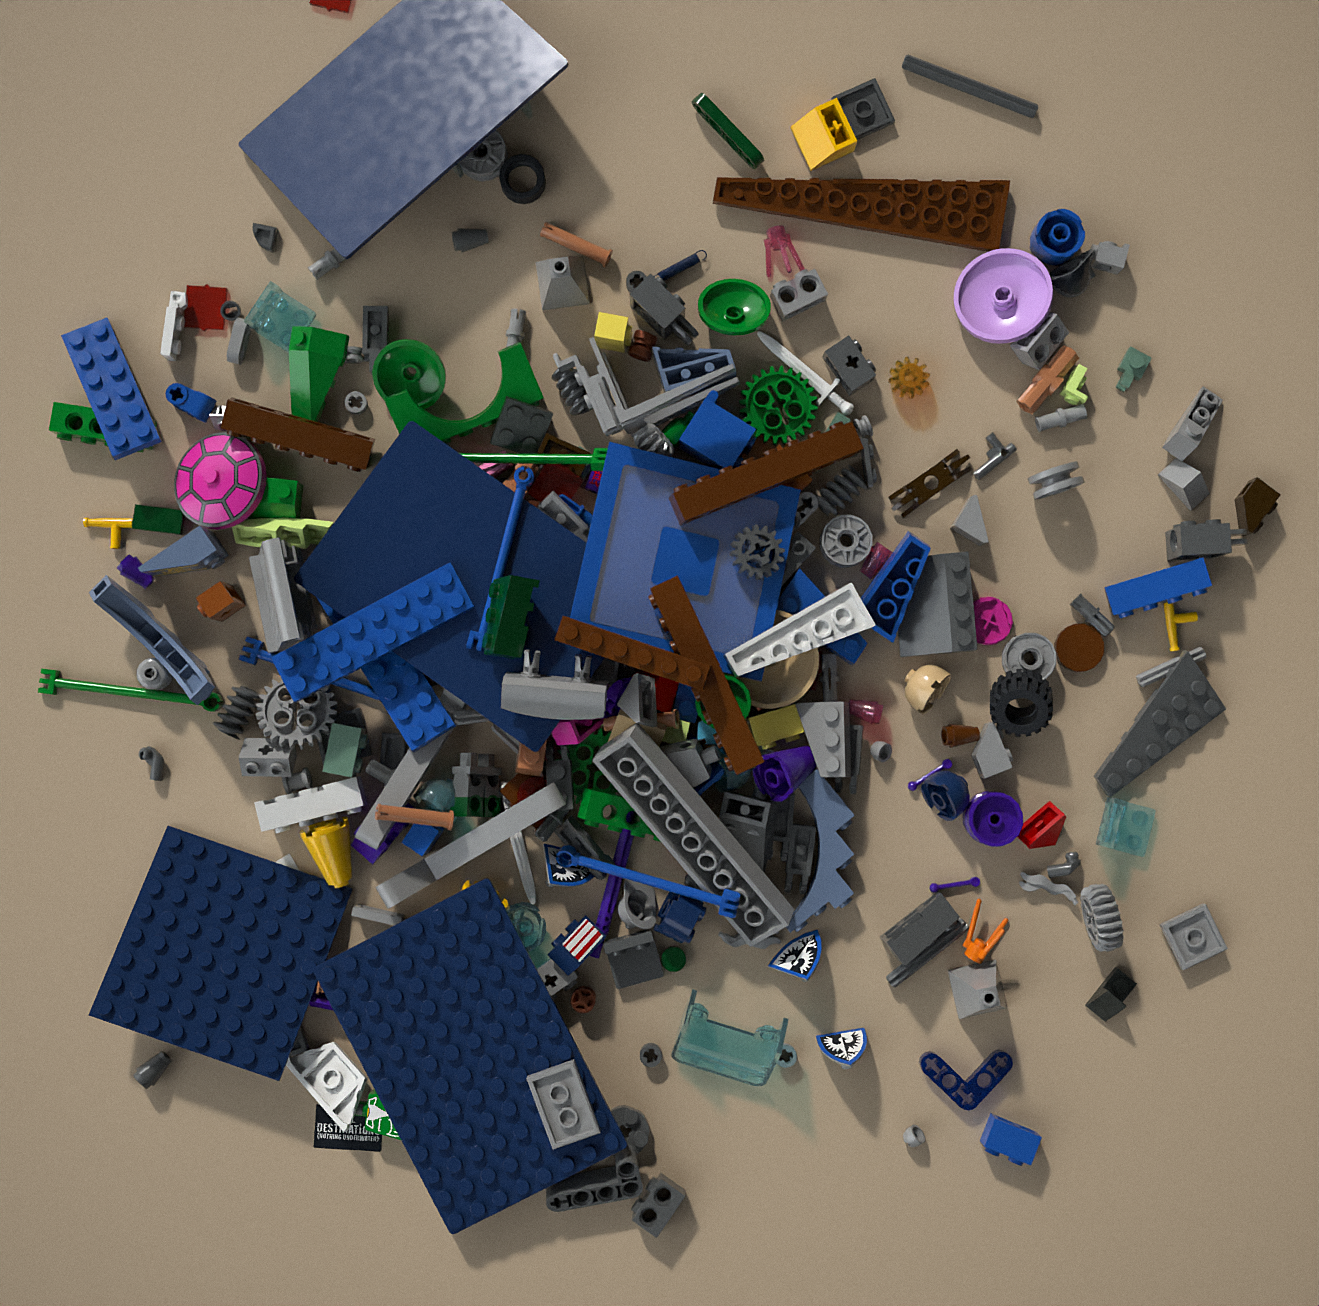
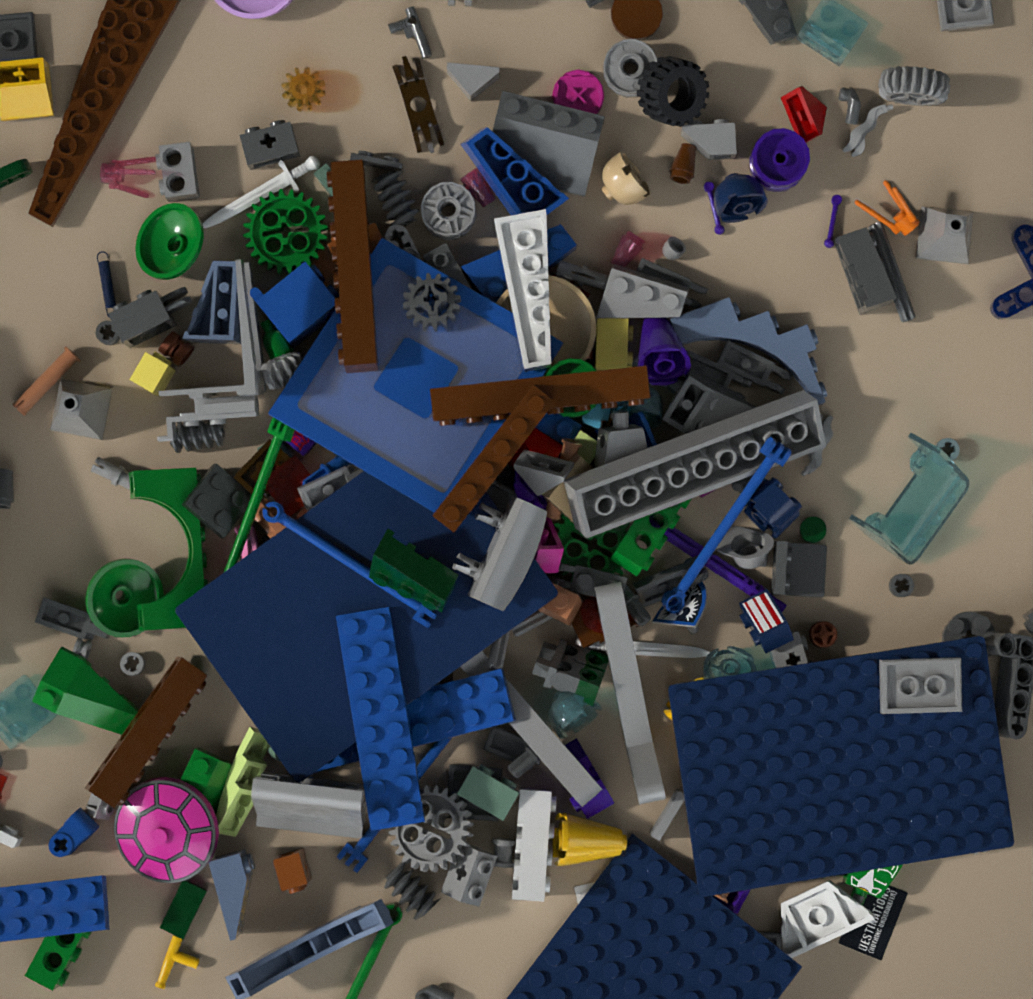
camera: 70 degrees left, 0 degrees up
(129, 569) = (228, 951): dark purple cone -> none
(153, 674) = (352, 961): light grey head -> none
(238, 342) = (26, 764): light grey beam -> none
(414, 816) = (581, 738): nougat pin -> none
(422, 838) = (602, 739): blue brick -> none
(799, 956) = (852, 400): shield -> none
(843, 1046) = (957, 387): shield -> none
(863, 427) = (338, 153): light grey bush -> none
(1110, 995) = (994, 104): pearl dark grey slope -> none

